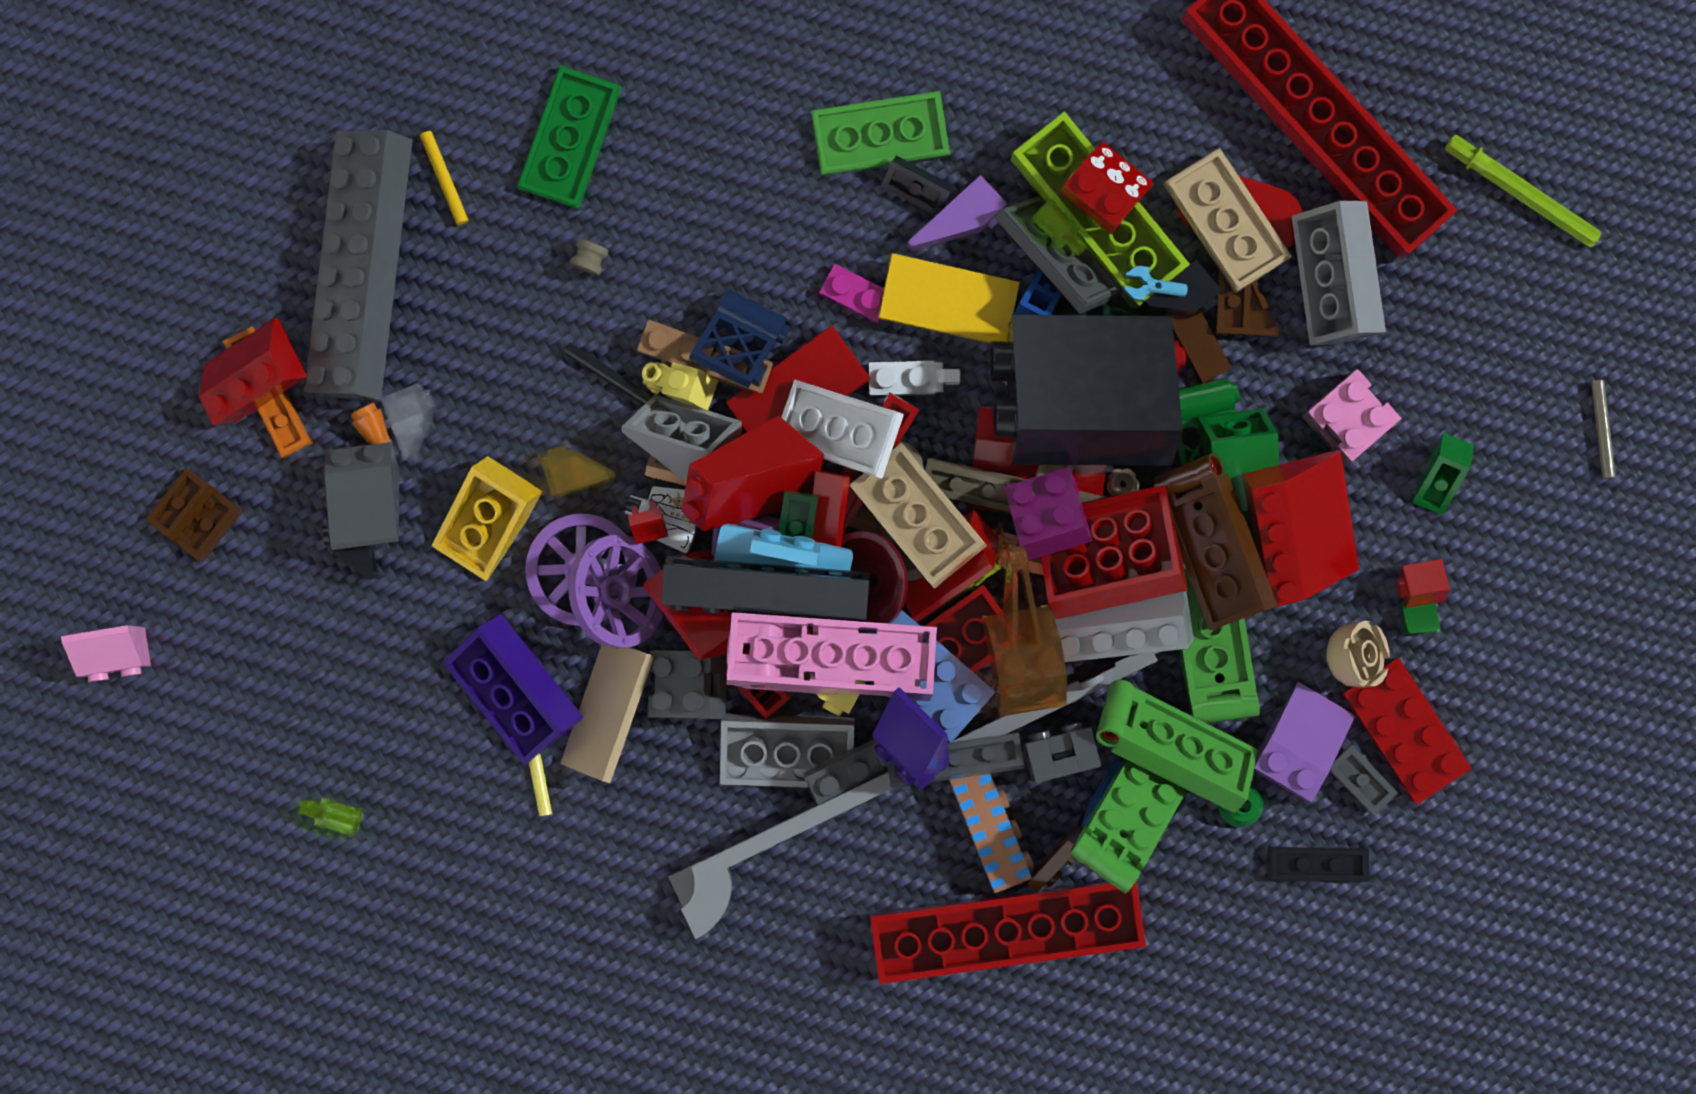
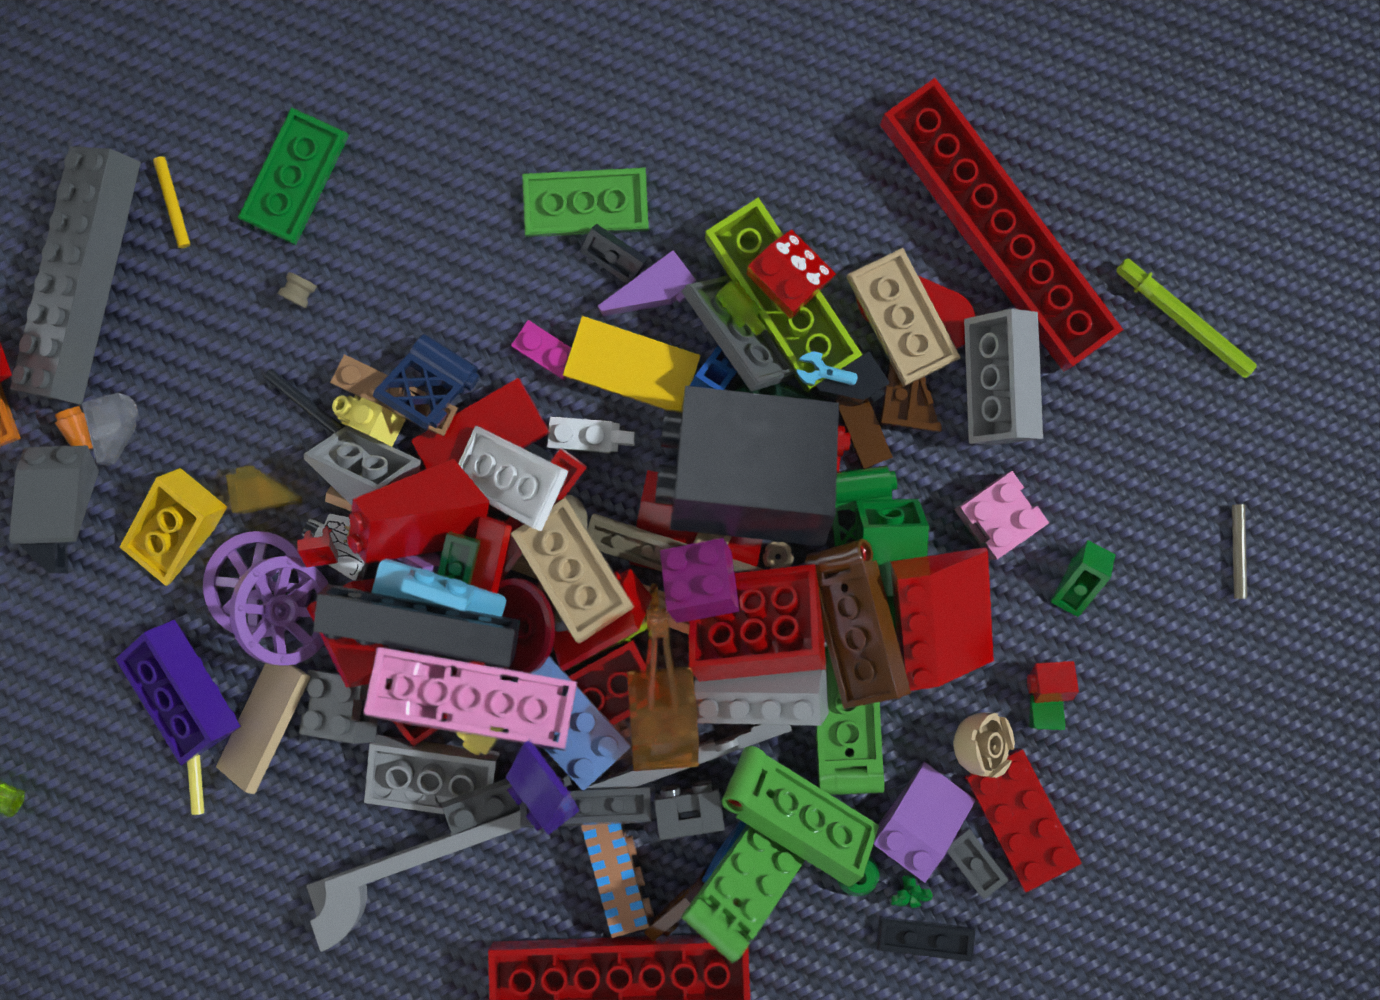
camera: 10 degrees right, 0 degrees up
(1299, 818) = (911, 893): none -> green plant

